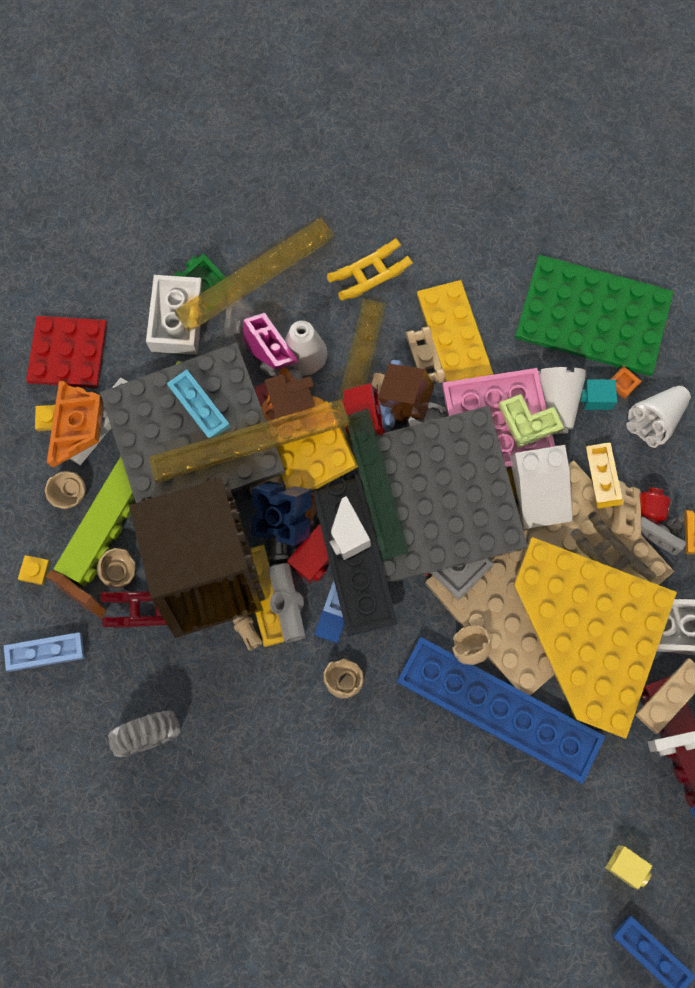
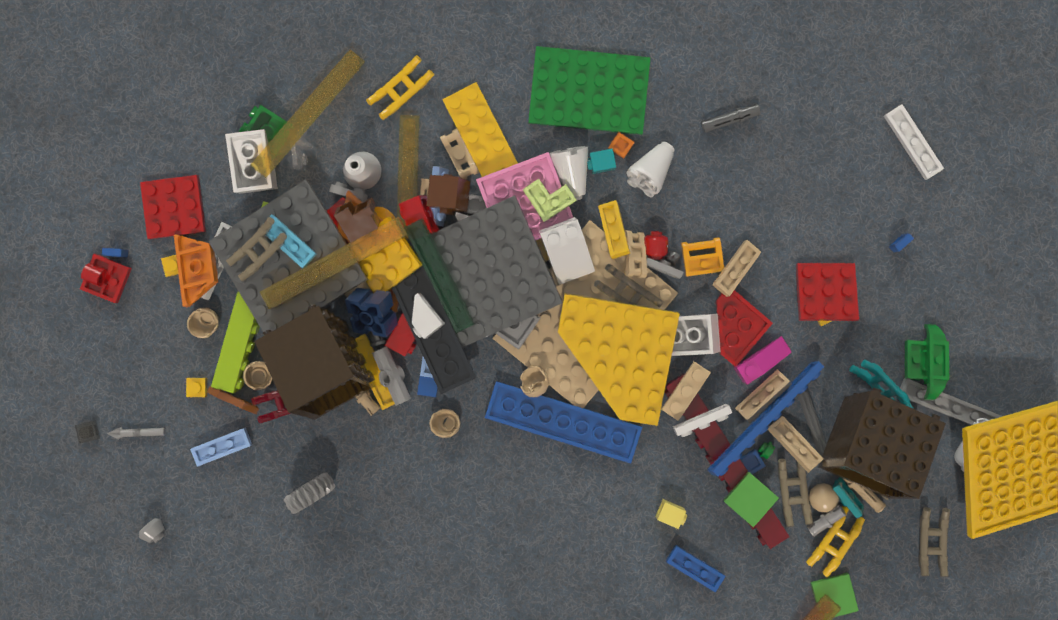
camera: 10 degrees left, 15 degrees up
(146, 406) = (258, 261): none -> dark tan piece
(266, 342) = (330, 173): dark pink slope -> none

